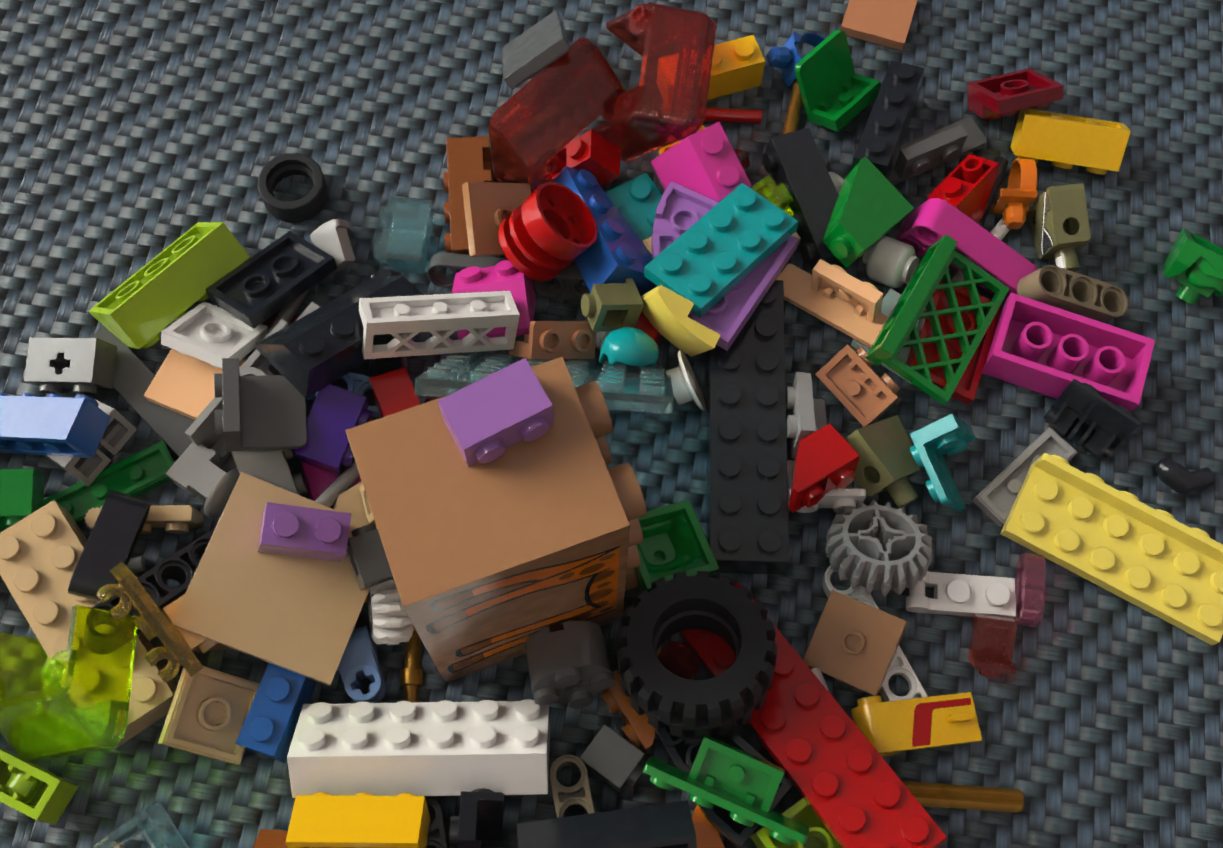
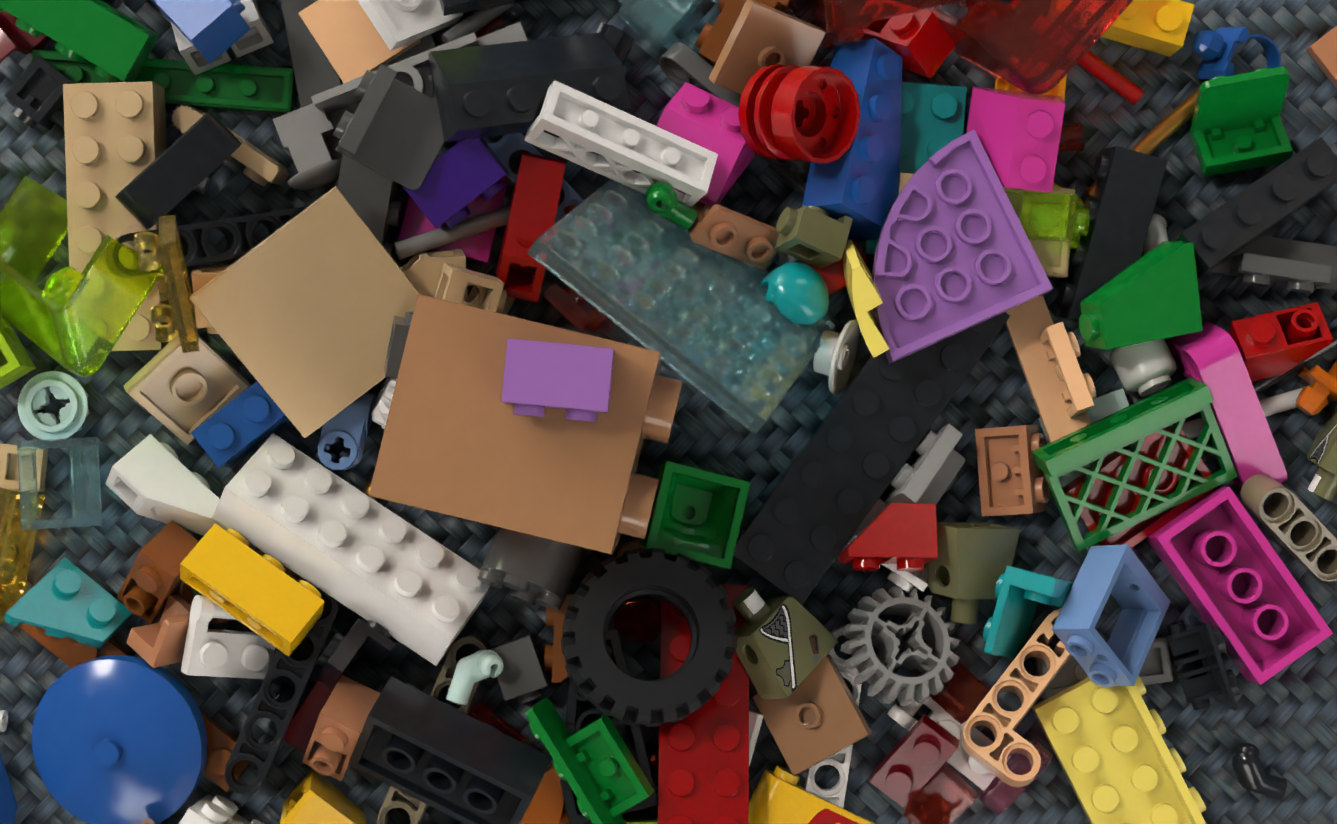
camera: 30 degrees right, 20 degrees up
(90, 807) = (36, 395): none -> light aqua gear
(236, 807) = (162, 488): none -> white slope
(304, 532) = (359, 289): medium lavender brick -> none
(495, 345) = (664, 202): none -> green arm
(578, 778) = (472, 670): none -> light aqua arm
(721, 248) = (963, 250): teal plate -> none
(796, 601) = (779, 642): none -> olive torso
(947, 558) = (961, 694): none -> clear red plate
(951, 626) = (914, 760): none -> dark red plate
(988, 516) = (1004, 722): none -> light nougat beam
(1005, 428) = (1143, 605): none -> medium blue window

